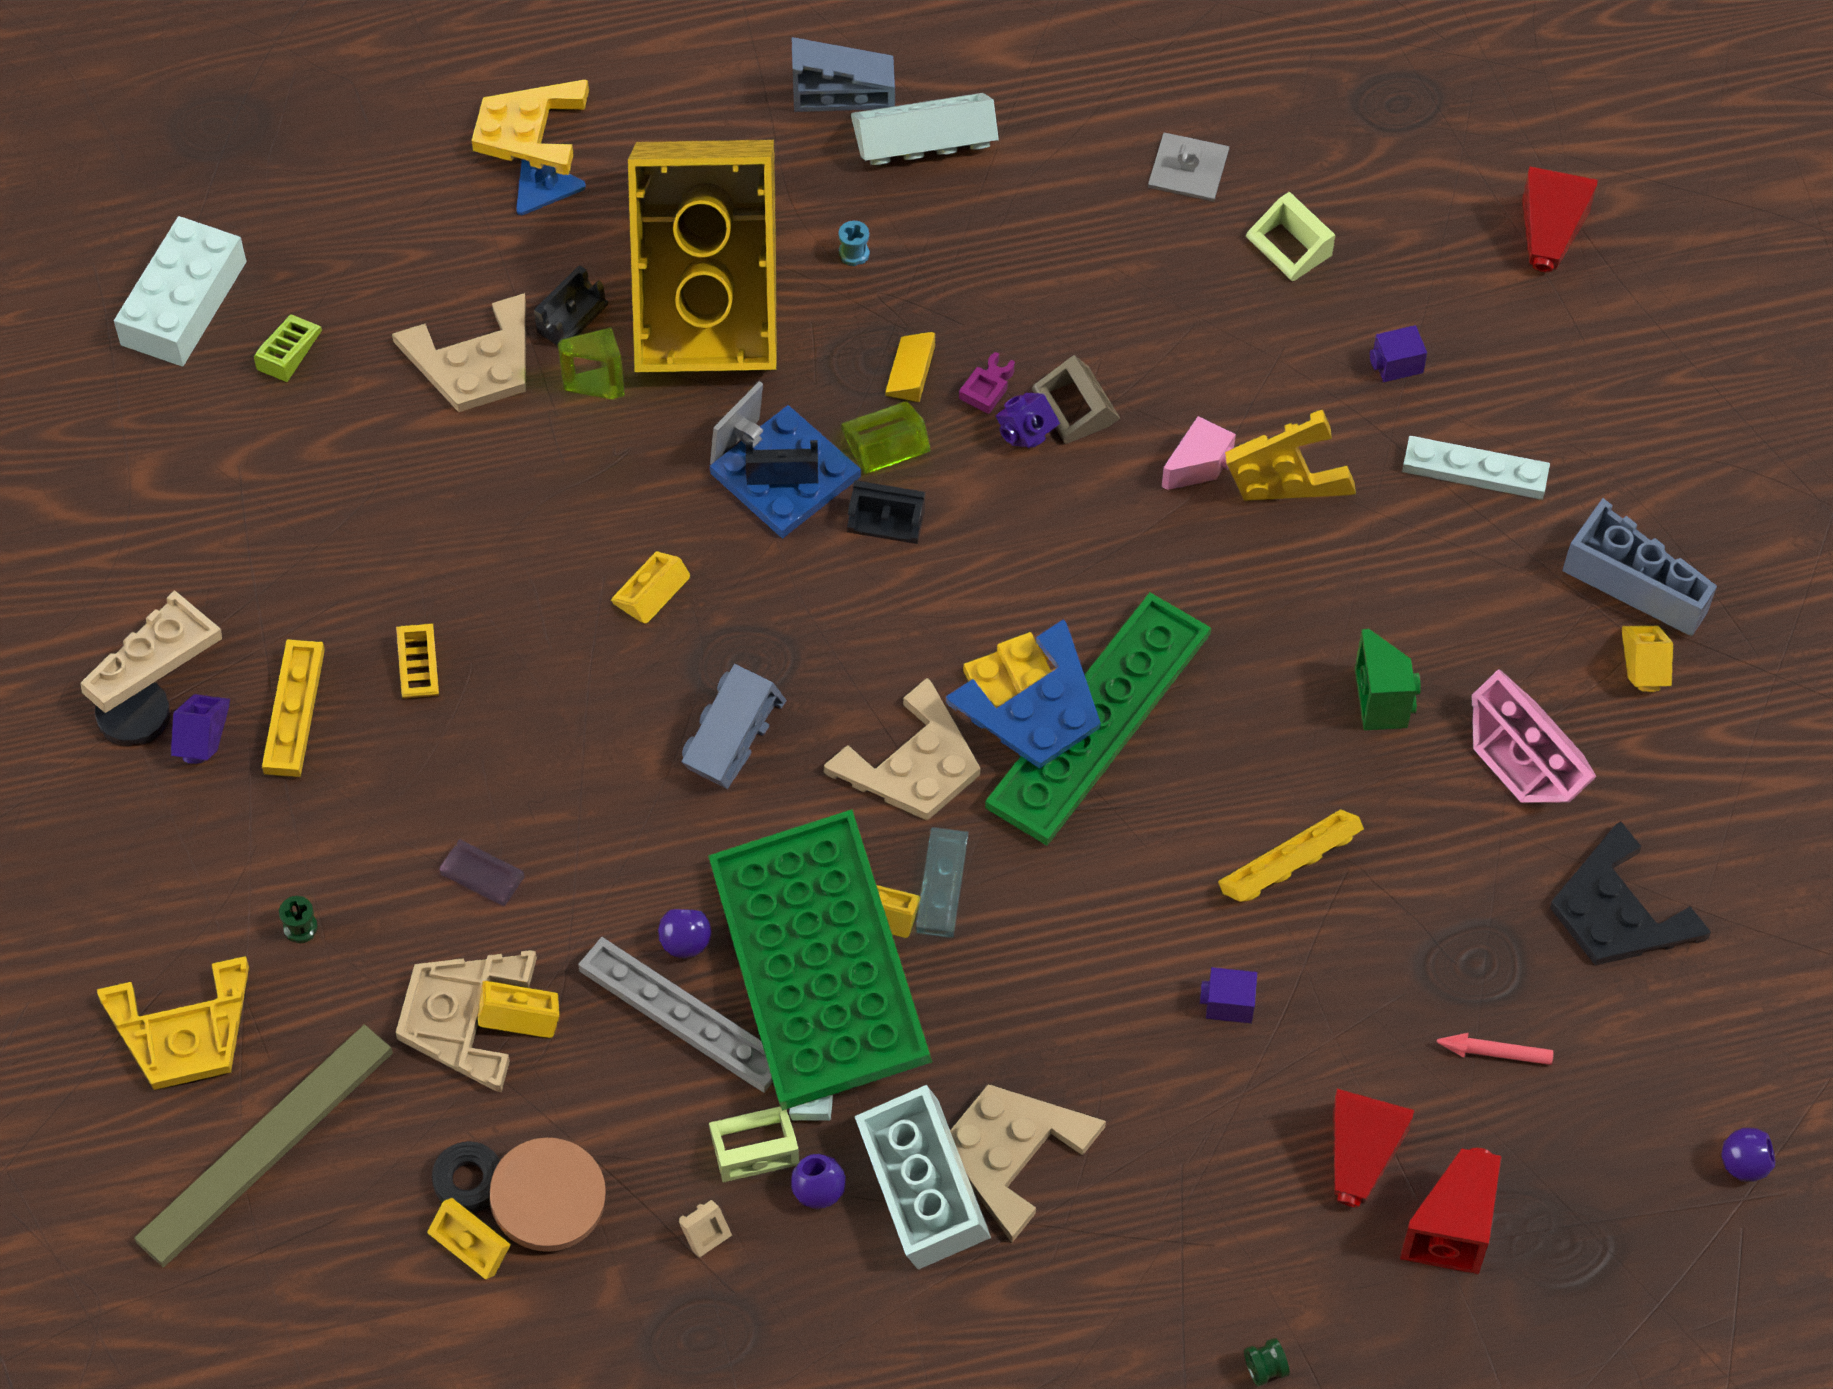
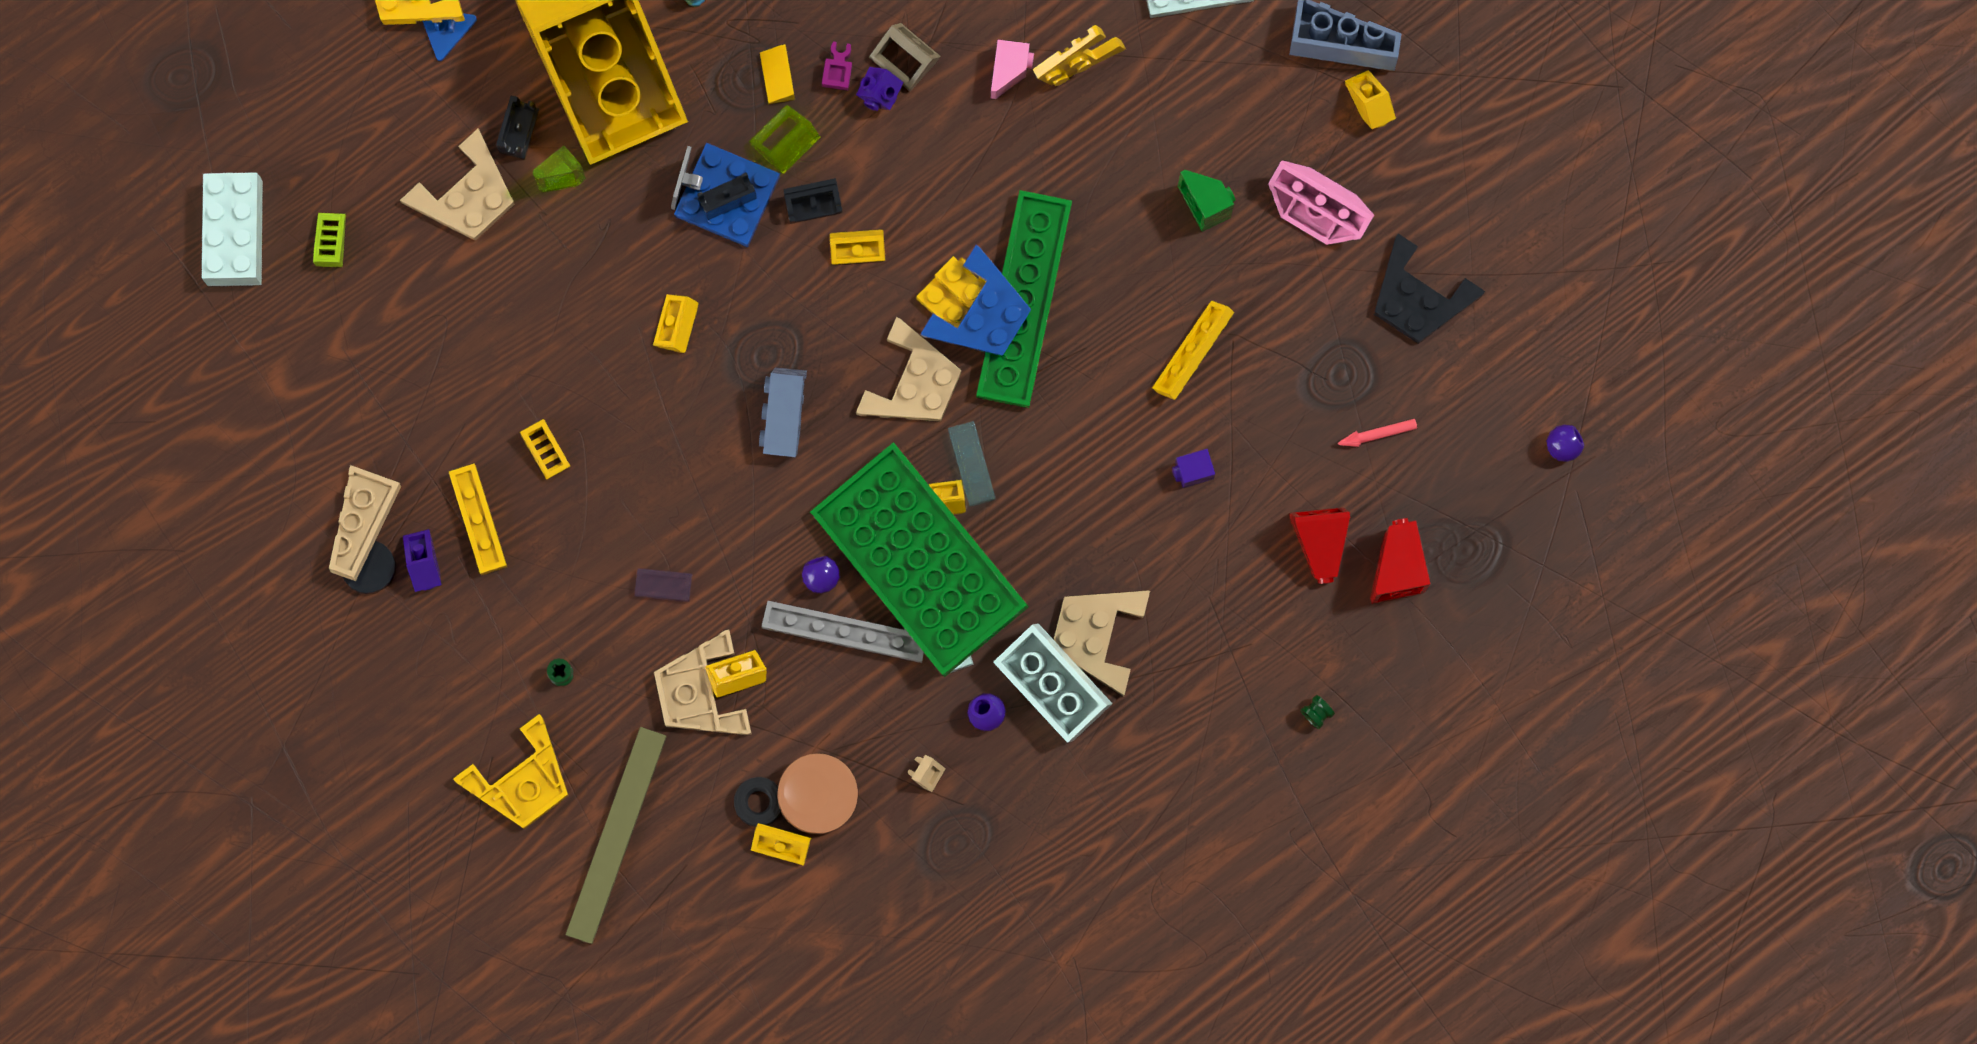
camera: 25 degrees left, 20 degrees up
(757, 1157) = (938, 712): yellowish green tile -> none
(916, 586) = (857, 246): none -> yellow slope

